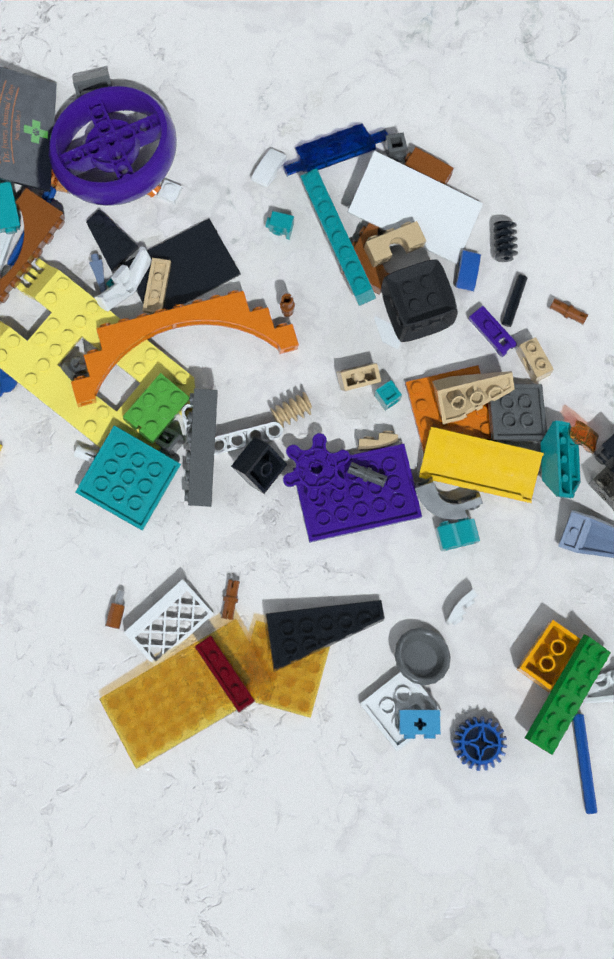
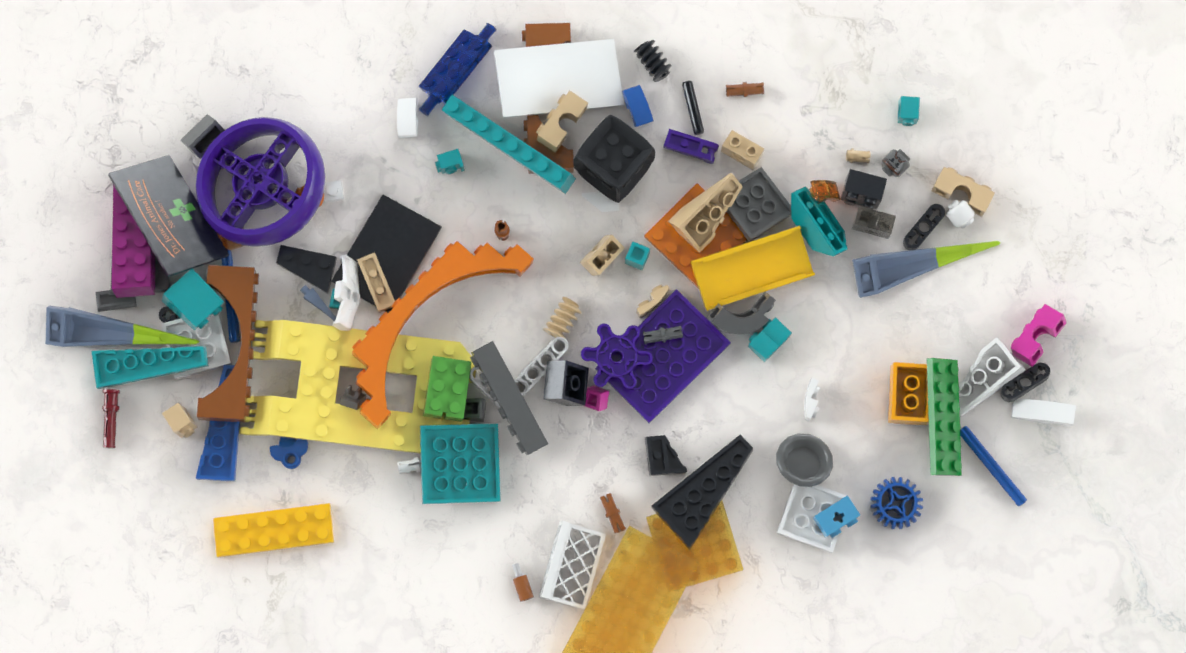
camera: 30 degrees left, 0 degrees up
(225, 674) = (649, 577): dark red tile -> none
(278, 494) = (597, 398): none -> dark pink slope
(302, 578) = (662, 457): none -> black wing
(396, 146) = (508, 34): dark grey brick -> none

